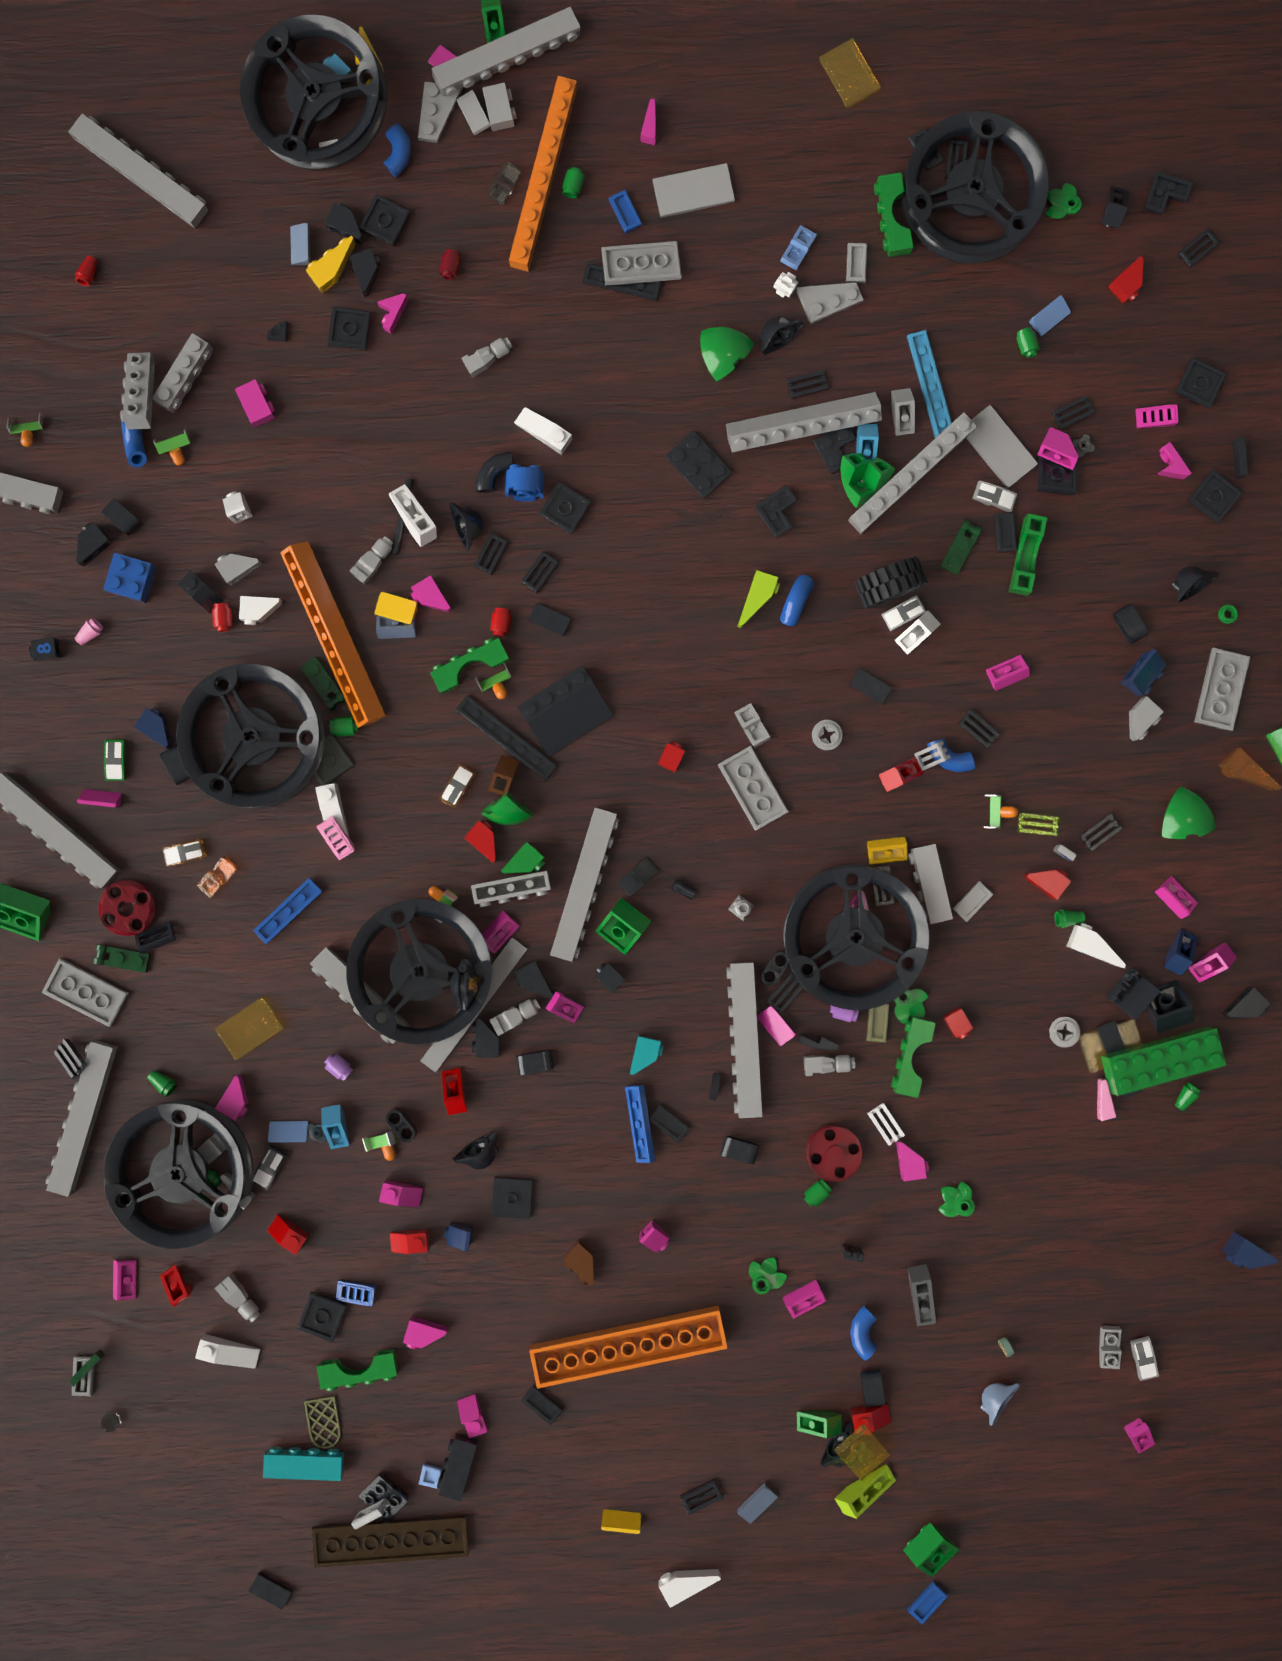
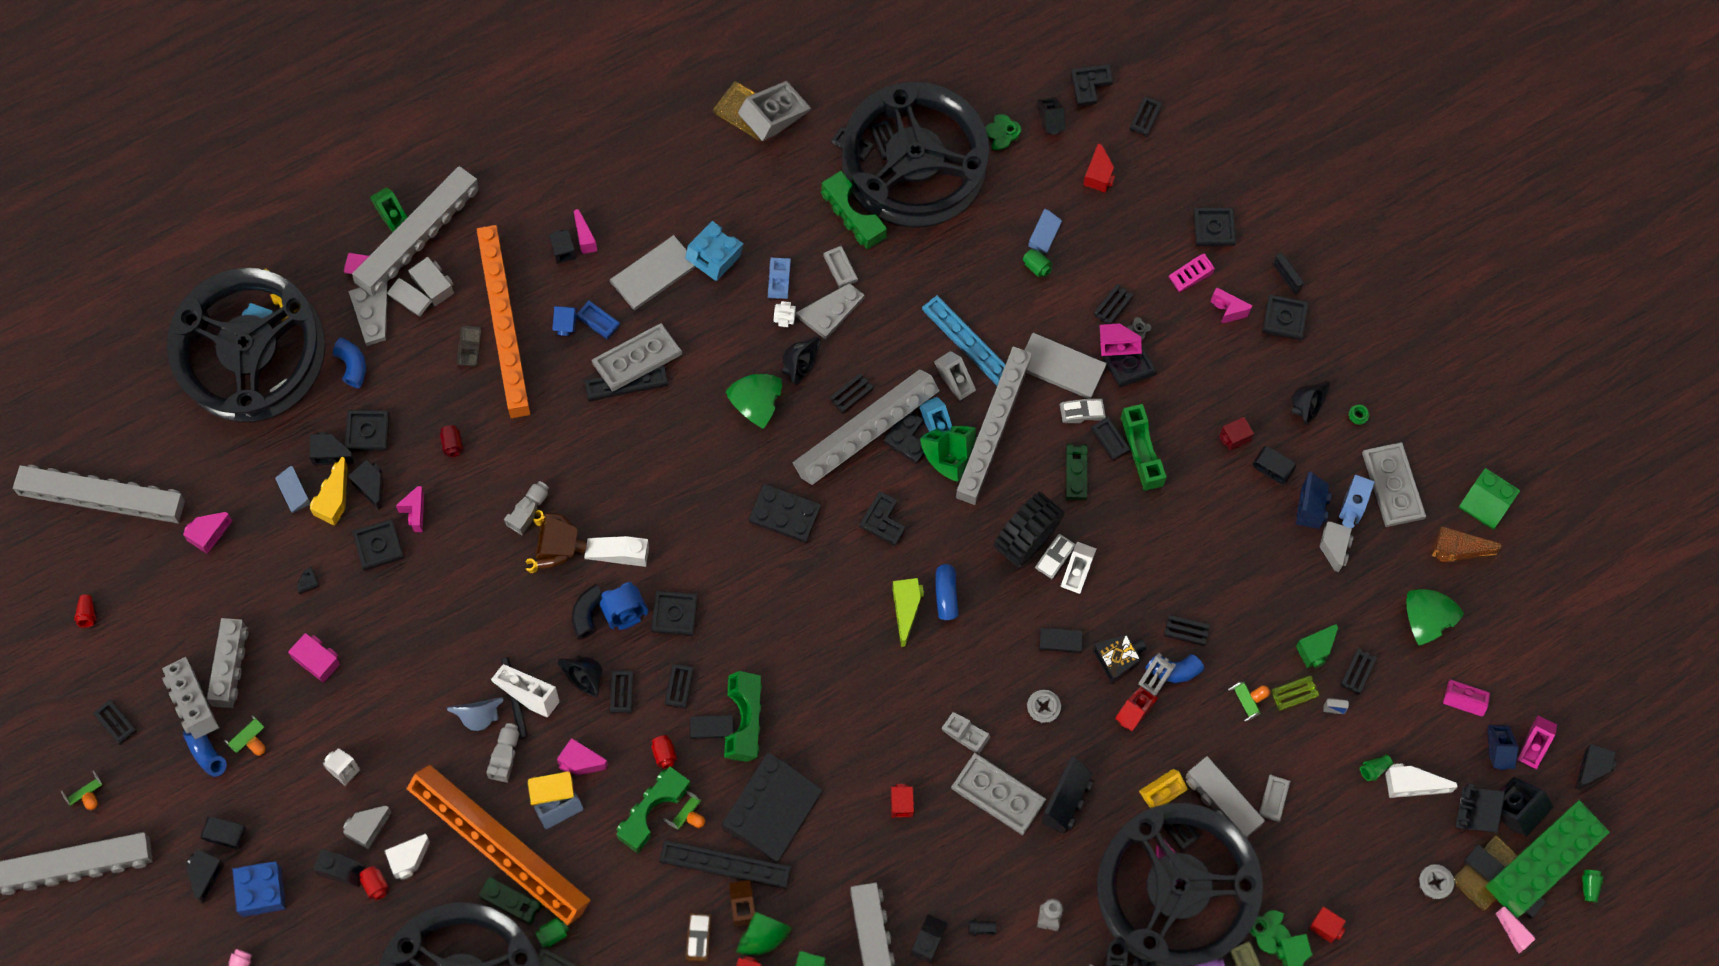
camera: 25 degrees left, 20 degrees down
(78, 395) = (125, 734): none -> black tile
(214, 247) = (207, 530): none -> dark pink slope
(365, 516) = (477, 715): none -> sand blue hat
(495, 398) = (555, 541): none -> reddish brown torso
(573, 183) = (535, 316): green brick -> none
(590, 604) = (745, 691): none -> green arch
(595, 198) = (564, 320): none -> blue brick
(625, 127) = (562, 246): none -> black brick
(753, 196) = (714, 251): none -> dark azure piece
(806, 819) = (1068, 796): none -> black slope
(871, 84) = (773, 110): none -> light grey slope
(910, 723) = (1118, 656): none -> torso
(1008, 672) = (1185, 564): dark pink slope -> none
(1050, 882) = (1337, 741): slope -> none
(1078, 797) = (1317, 646): none -> green slope
(1113, 581) = (1236, 434): none -> dark red brick
(1179, 691) = (1353, 506): none -> medium blue torso

